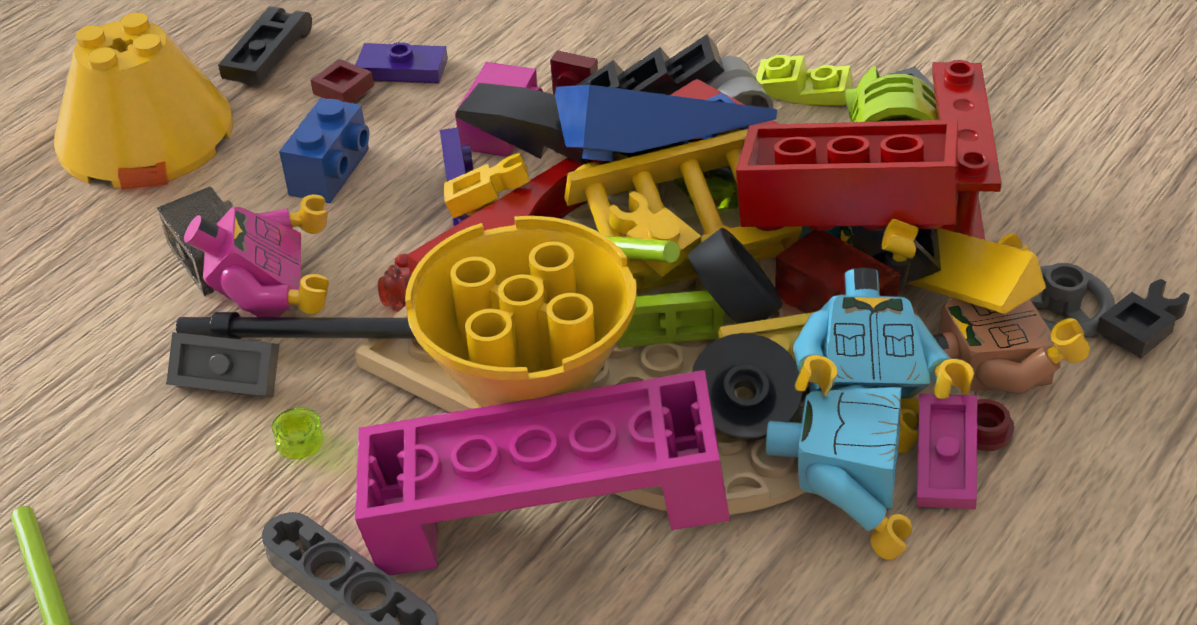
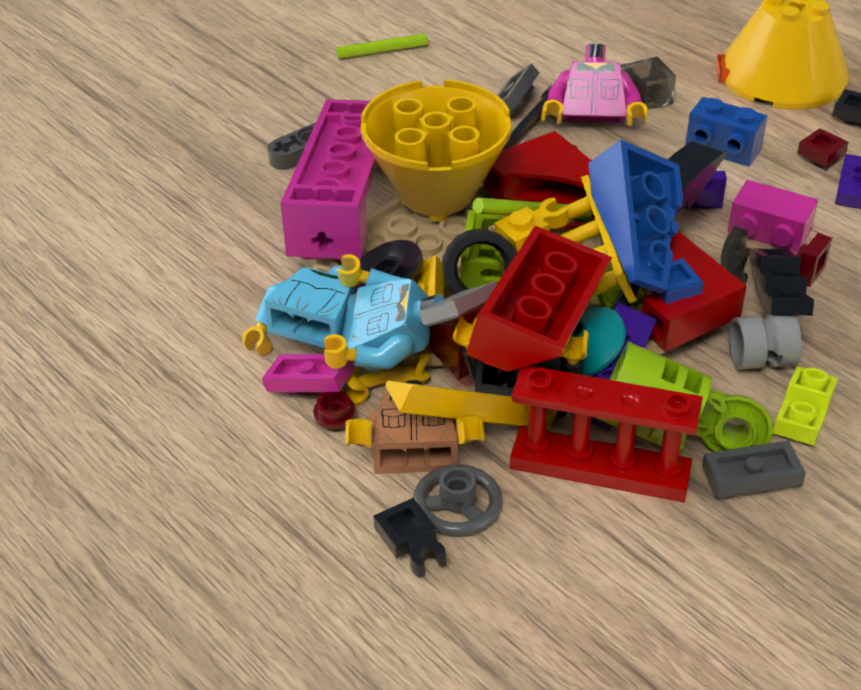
camera: 100 degrees right, 0 degrees up
(873, 242) = (456, 305): none -> light grey tile

